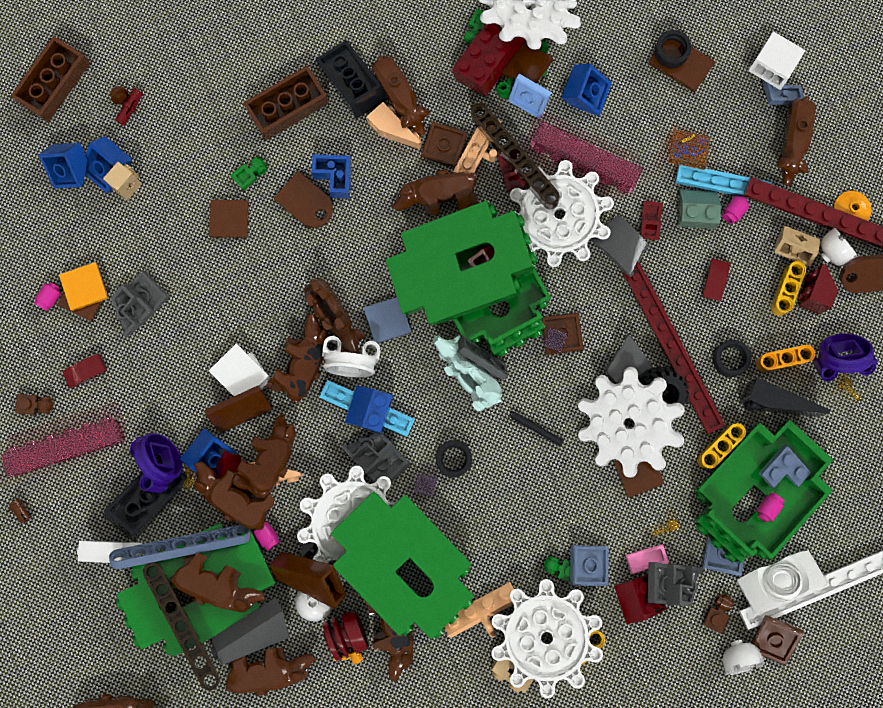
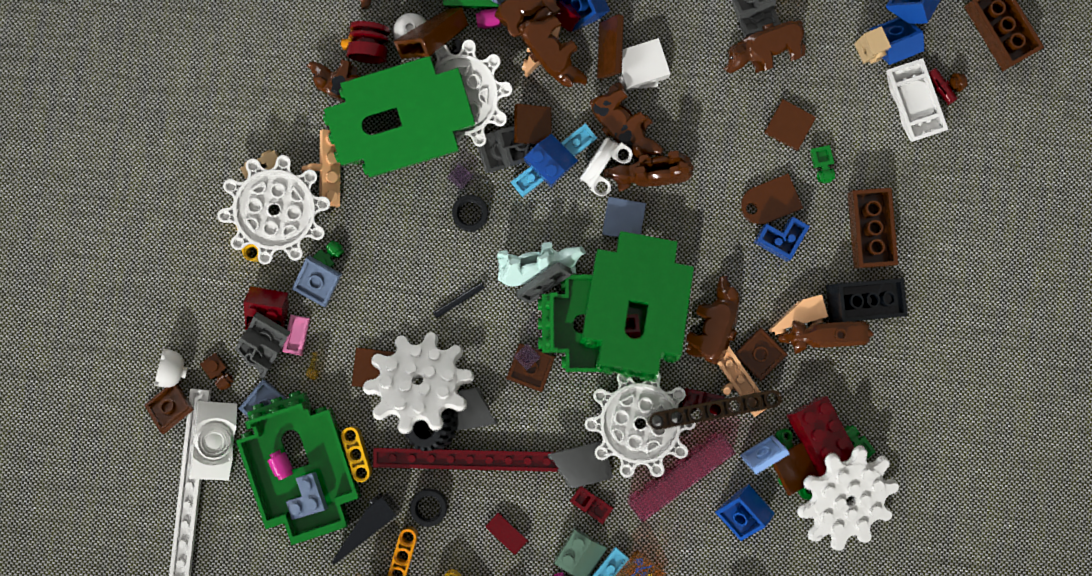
camera: 120 degrees right, 5 degrees up
(153, 122) = (916, 100): none -> white slope
(166, 274) = (764, 44): none -> reddish brown animal
(344, 444) = (531, 123): none -> reddish brown tile

